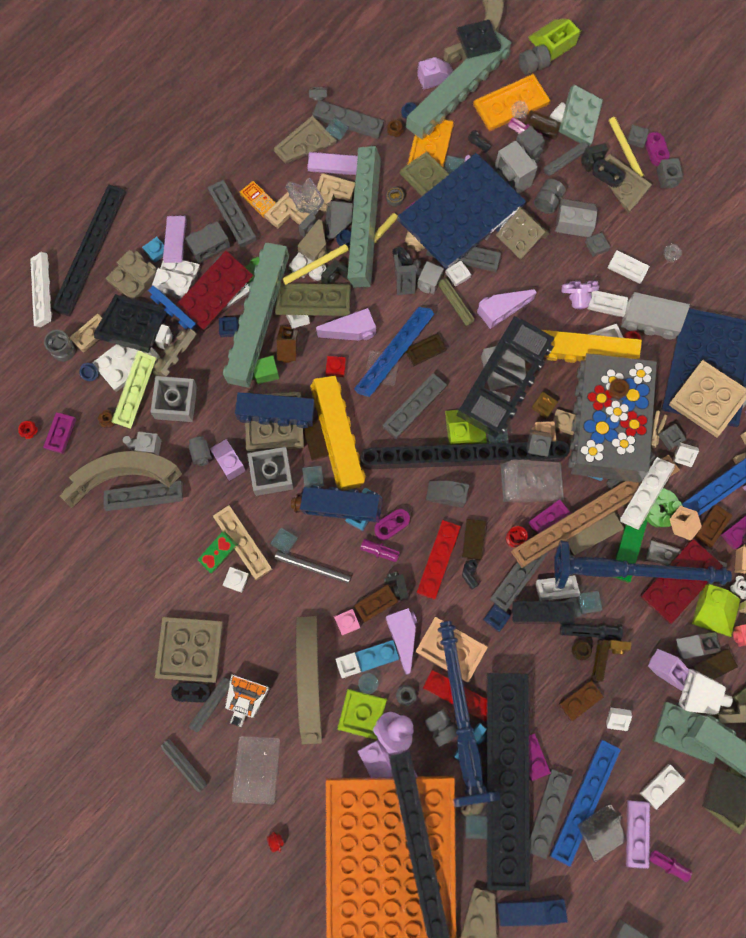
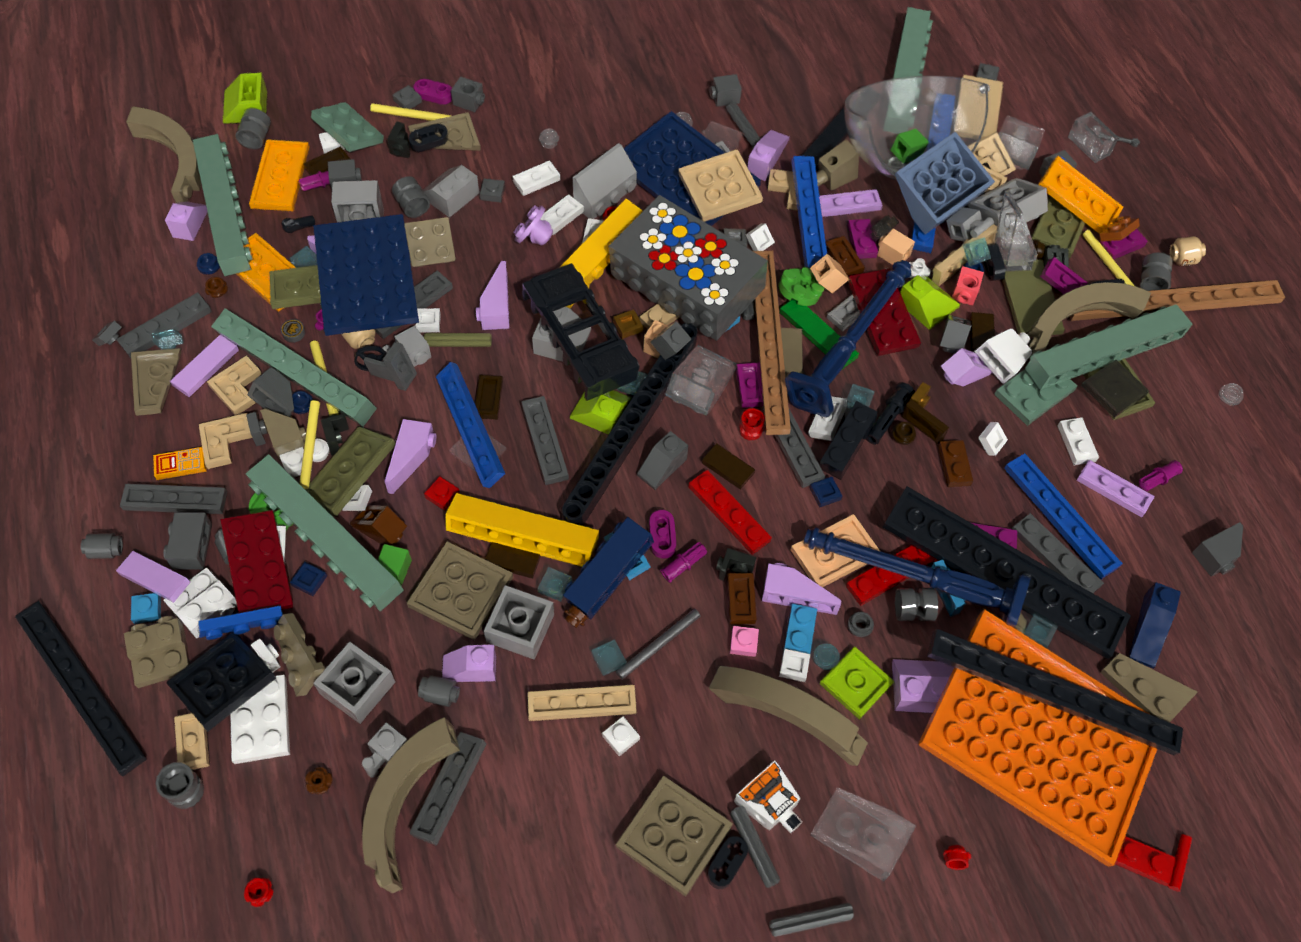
camera: 60 degrees left, 15 degrees down
(40, 289) = (84, 772): white plate -> none
(59, 433) = (294, 851): magenta plate -> none
(88, 371) = (240, 770): dark blue plate -> none
(133, 389) = (307, 724): yellowish green plate -> none
(177, 197) = (102, 545): none -> dark grey brick
(217, 552) = (576, 736): green tile -> none
(274, 409) = (450, 575): dark blue brick -> none
(305, 197) = (224, 405): clear bracket -> none
(394, 731) = (897, 651): lavender plate -> none
(468, 573) = (761, 491): black arm -> none
(478, 39) = (188, 156): black plate -> none
(519, 105) = (296, 168): clear plate -> none
(565, 159) = (381, 163): dark grey axle -> none
(602, 832) = (1100, 514): clear smoke hinge -> none
(618, 389) = (666, 238): reddish brown tile -> none
(647, 493) = (785, 289): white plate -> none

